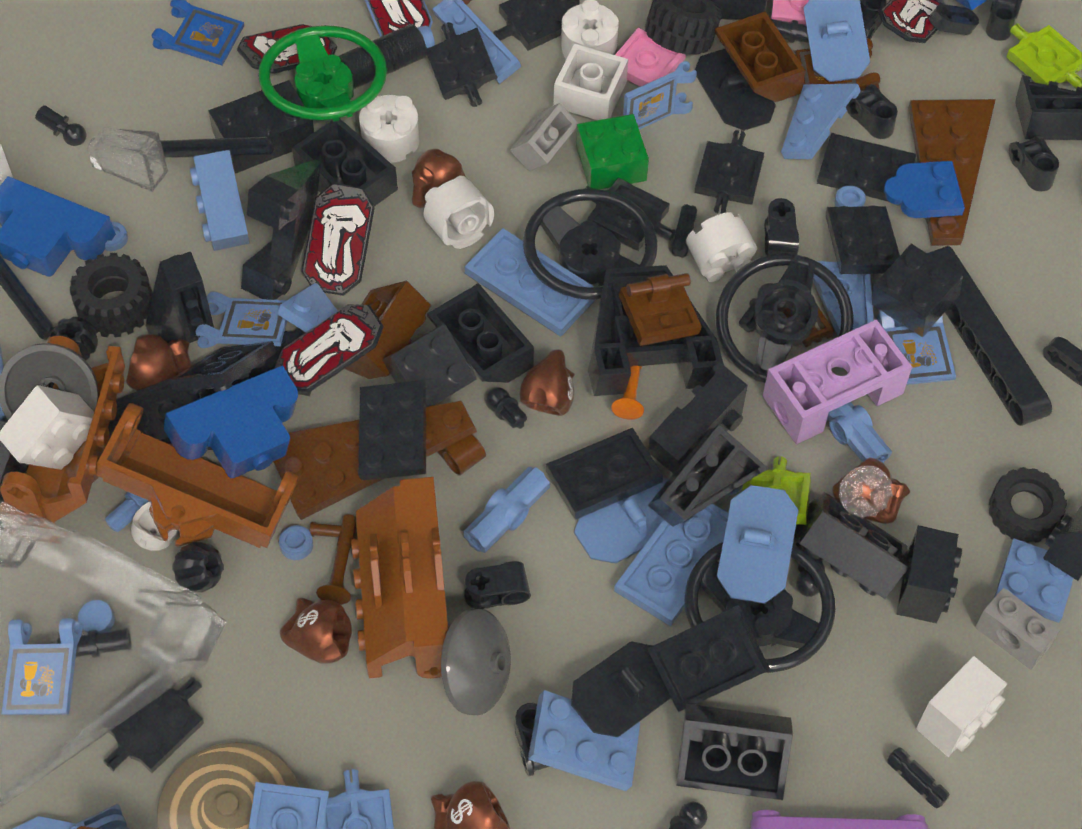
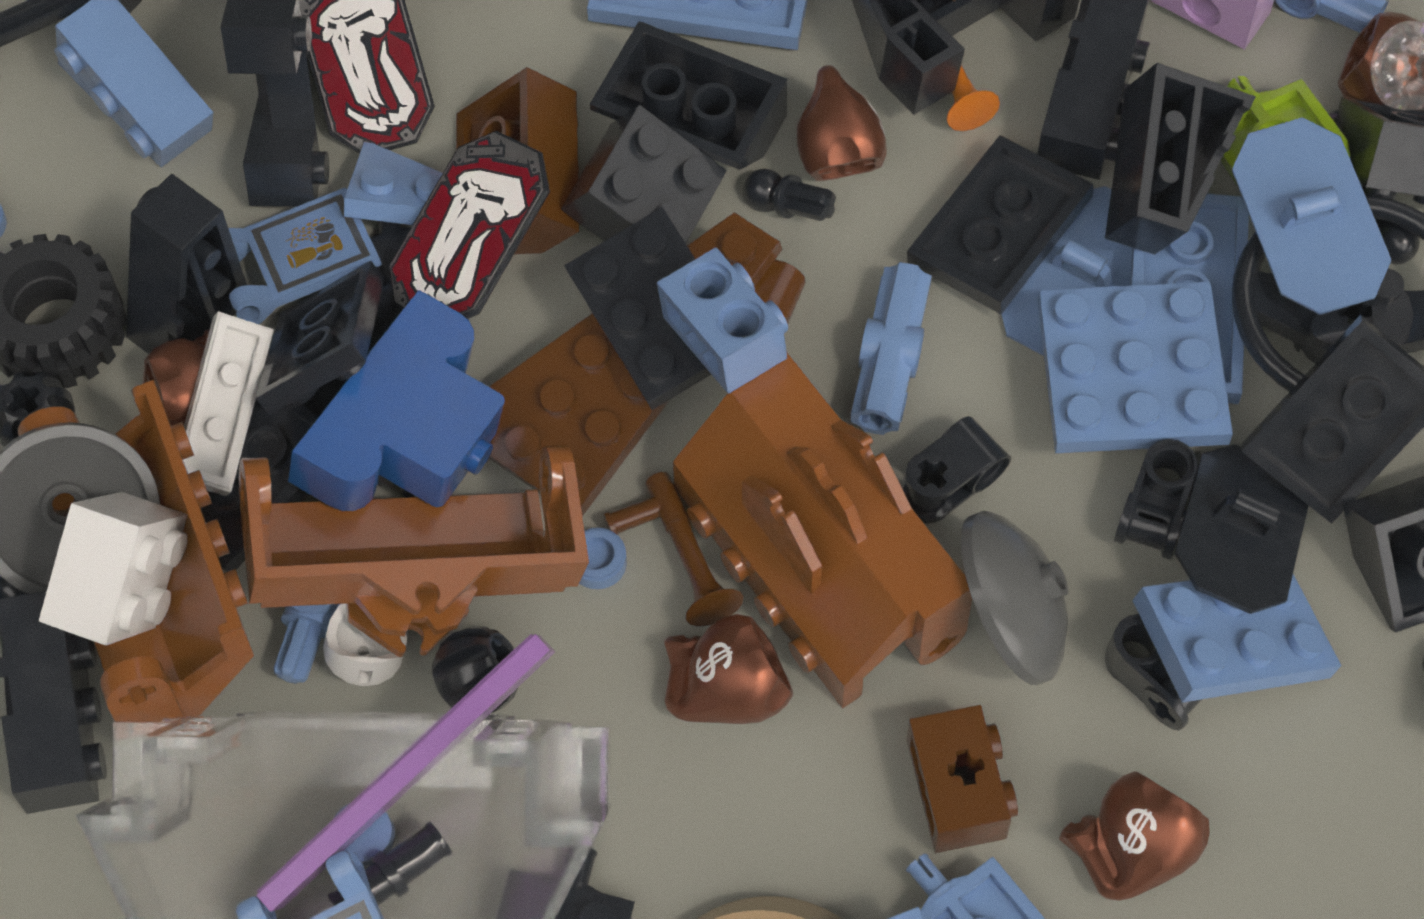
camera: 25 degrees left, 5 degrees up
(125, 595) = (405, 772): none -> medium lavender tile
(154, 377) = (225, 398): none -> white tile
(399, 722) = (954, 812): none -> reddish brown brick
(408, 448) = (711, 311): none -> medium blue brick
(587, 652) = (1157, 506): none -> black piece
(621, 579) = (1133, 367): none -> medium blue plate

